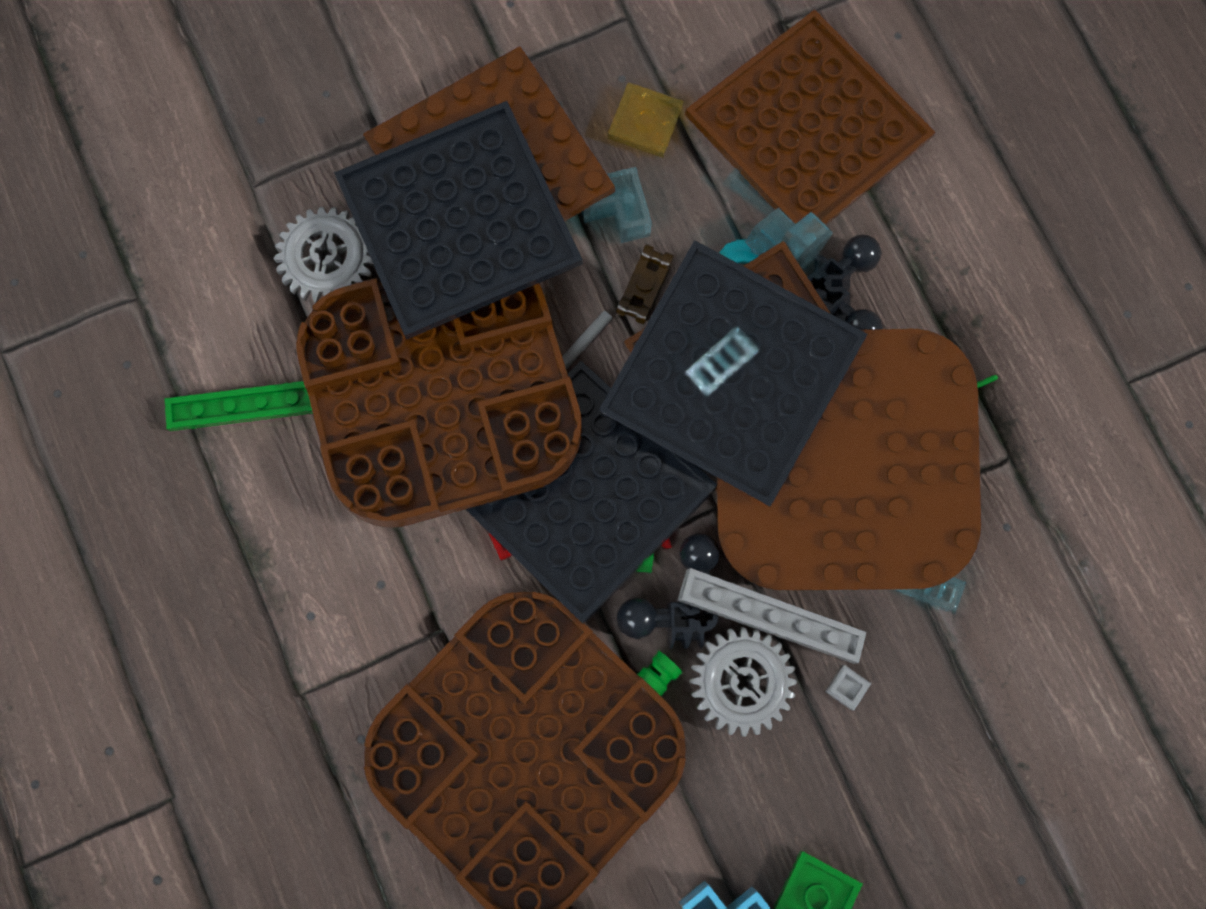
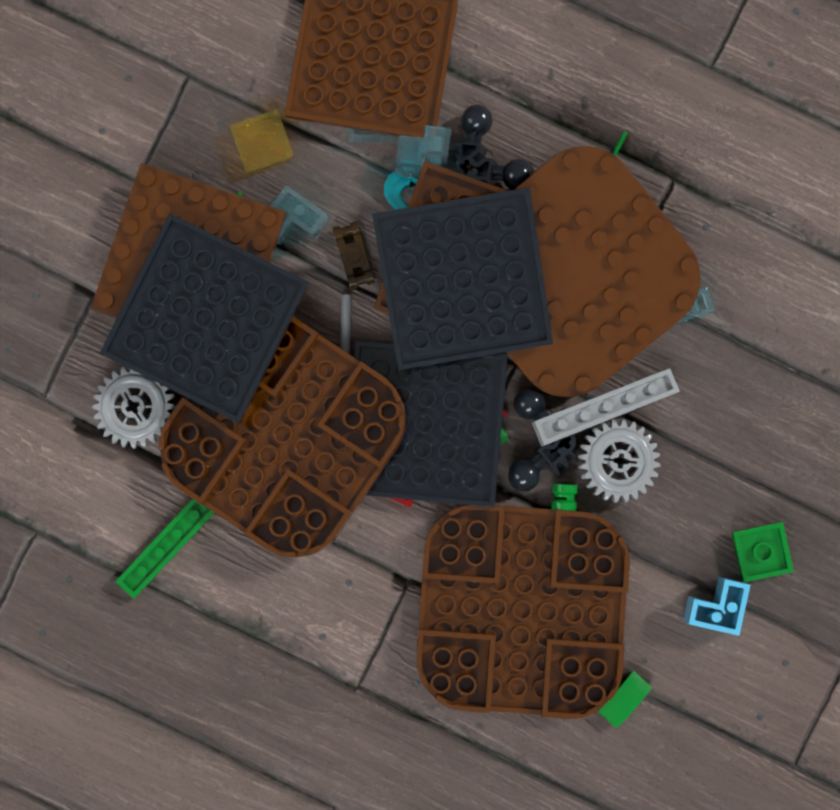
camera: 35 degrees left, 10 degrees up
(746, 344) = (458, 256): clear light blue slope -> none
(848, 687) = (684, 410): light grey tile -> none

